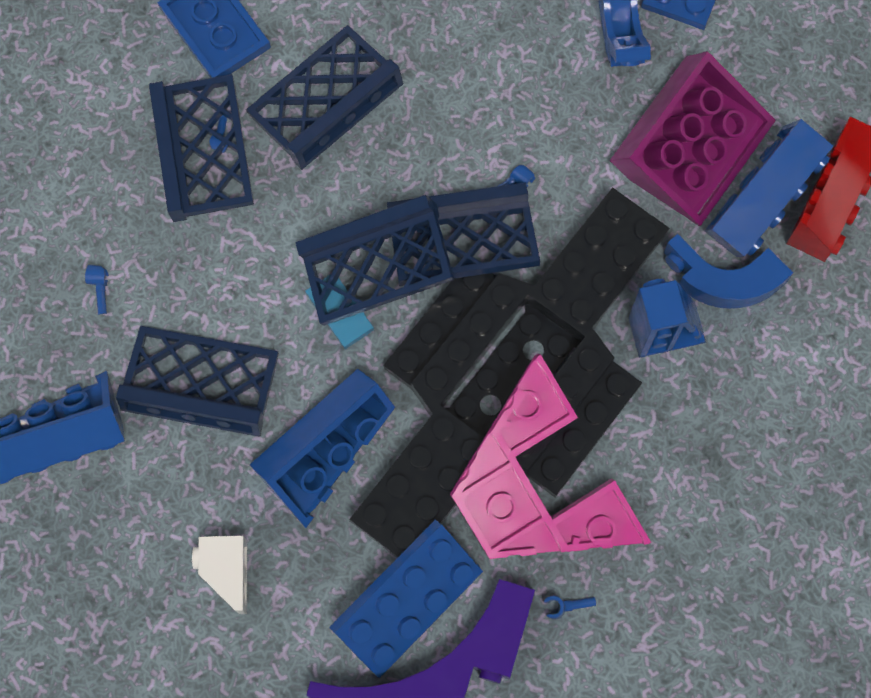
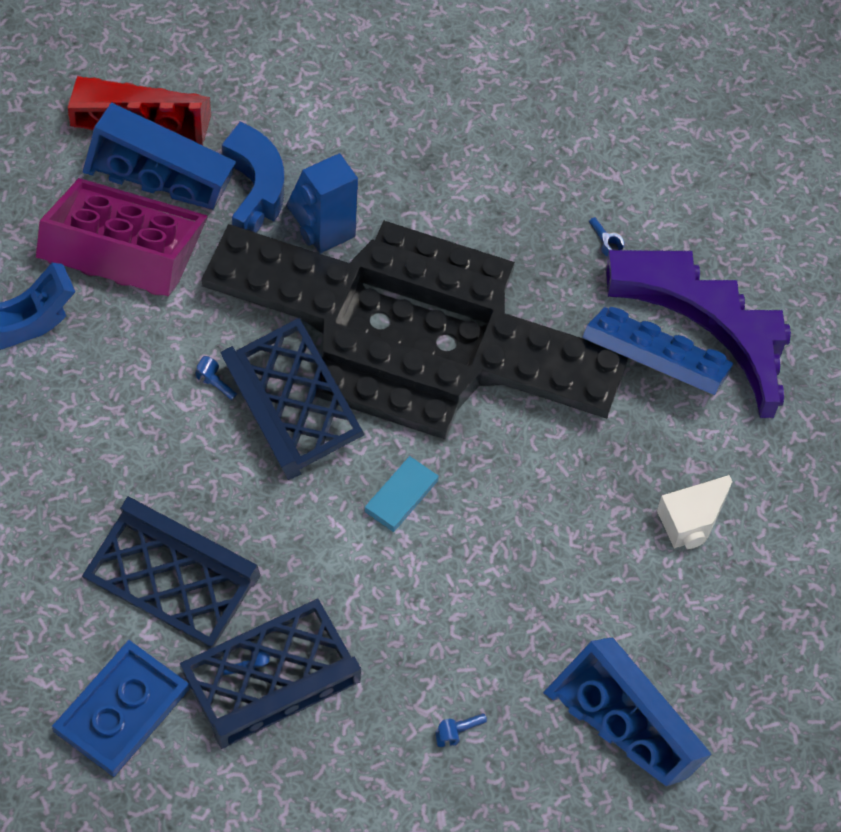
camera: 115 degrees left, 15 degrees down
(189, 408) = (553, 594): dark blue fence -> none
(323, 444) = (539, 461): blue wedge -> none
(374, 230) = (321, 472): dark blue fence -> none
(504, 505) = (540, 293): dark pink wing -> none

